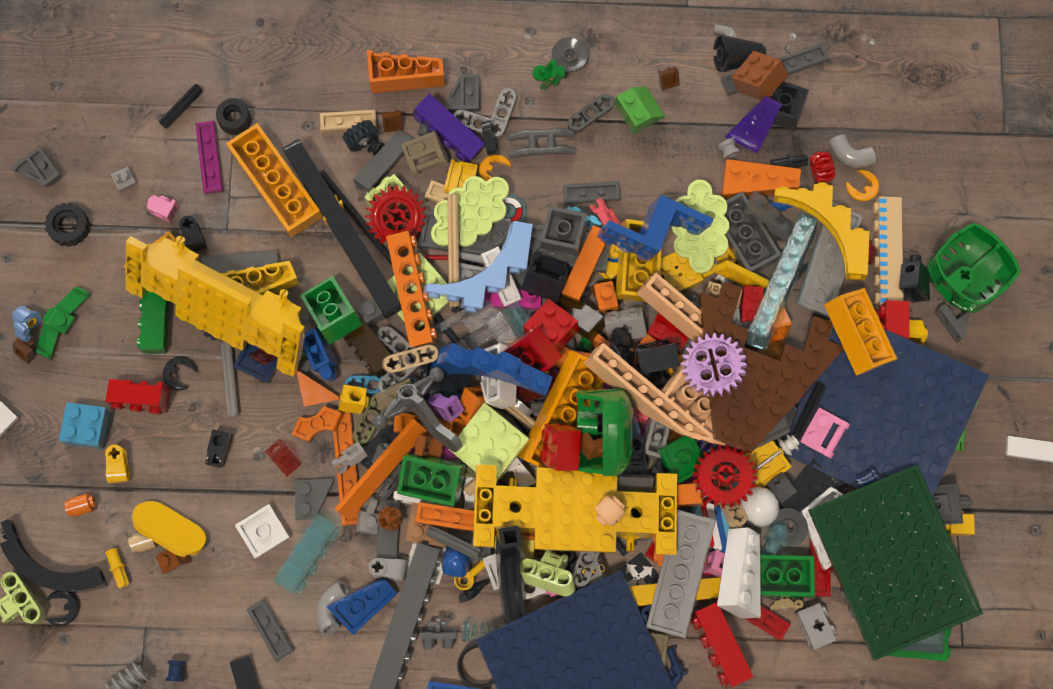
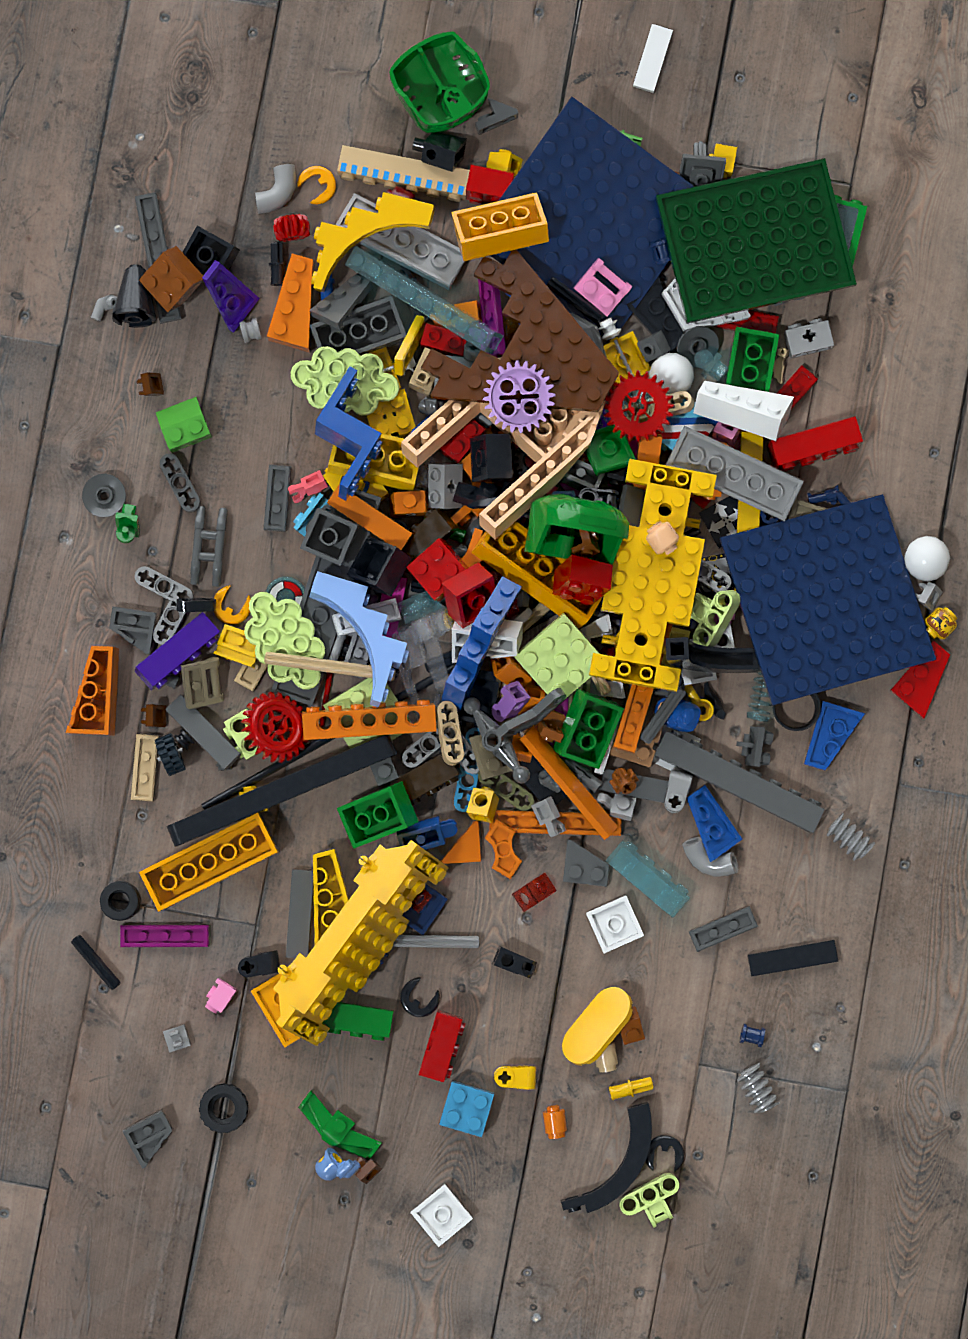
camera: 75 degrees left, 10 degrees up
(778, 340) = (492, 312): none -> magenta tile

